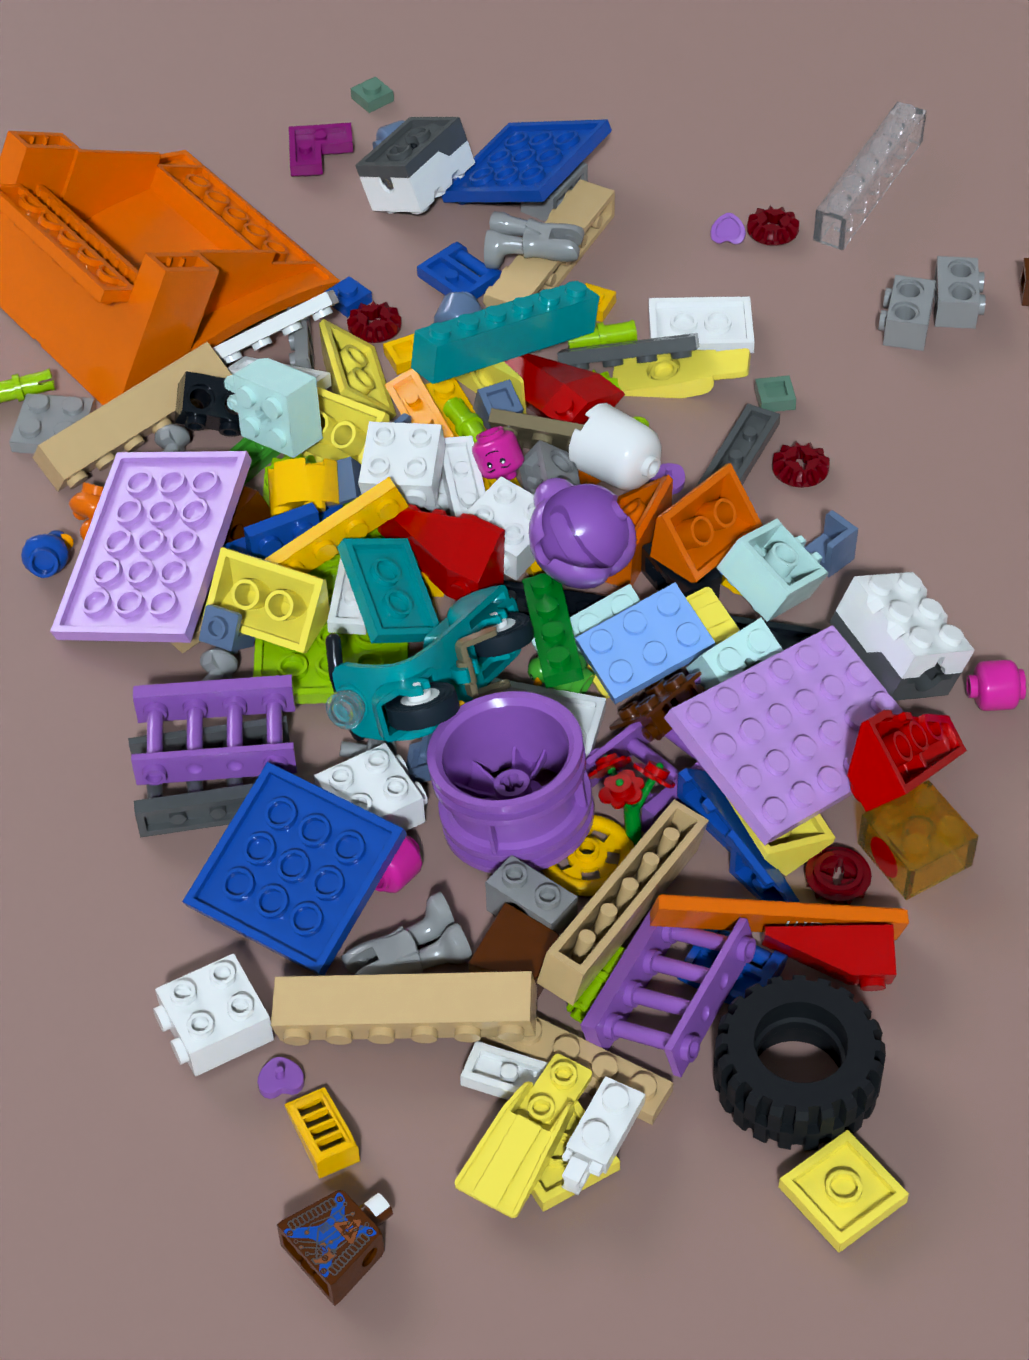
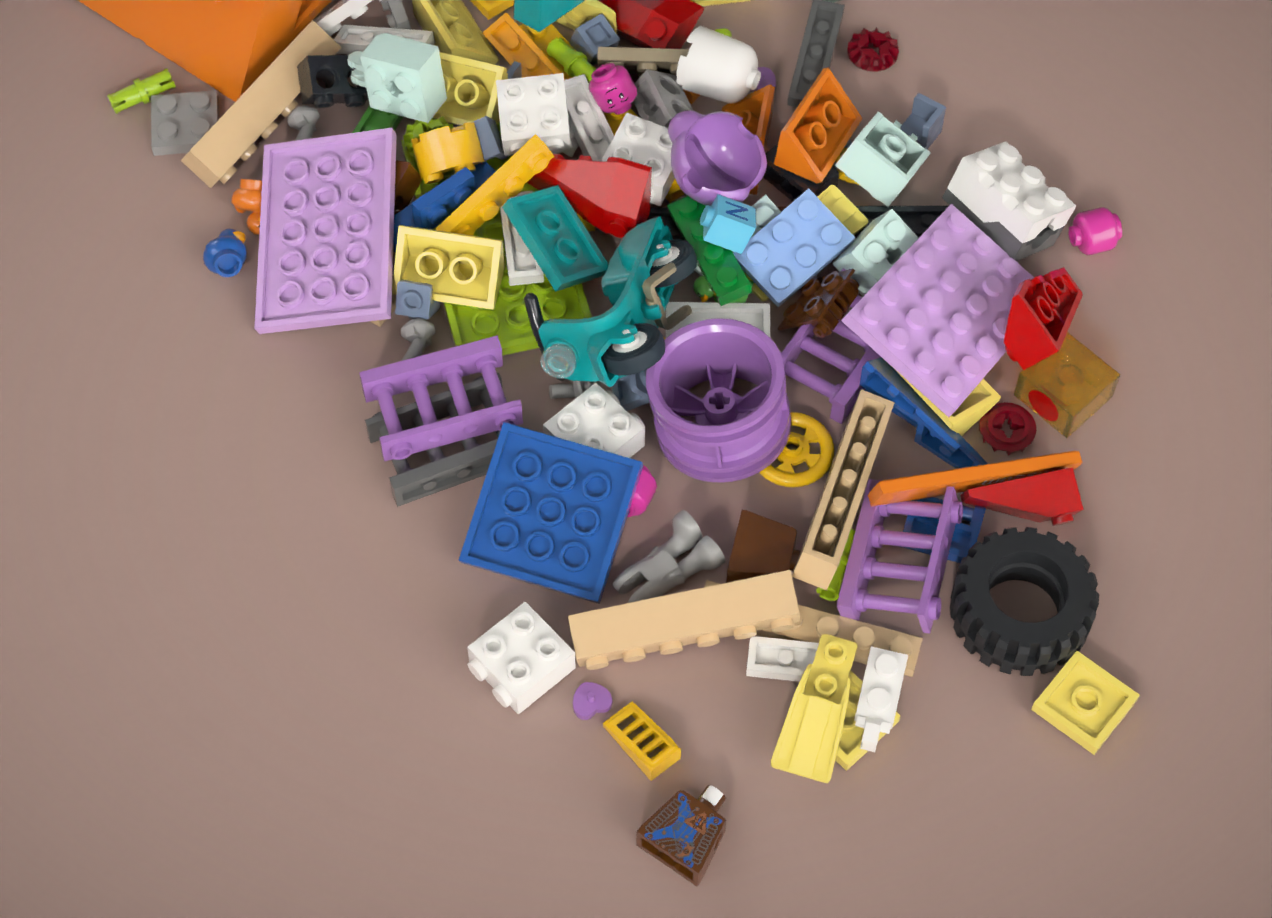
camera: 15 degrees left, 10 degrees up
(531, 894) = (761, 496): light grey brick -> none
(574, 602) = (728, 223): none -> medium azure brick
(624, 788) = (817, 388): red plant -> none

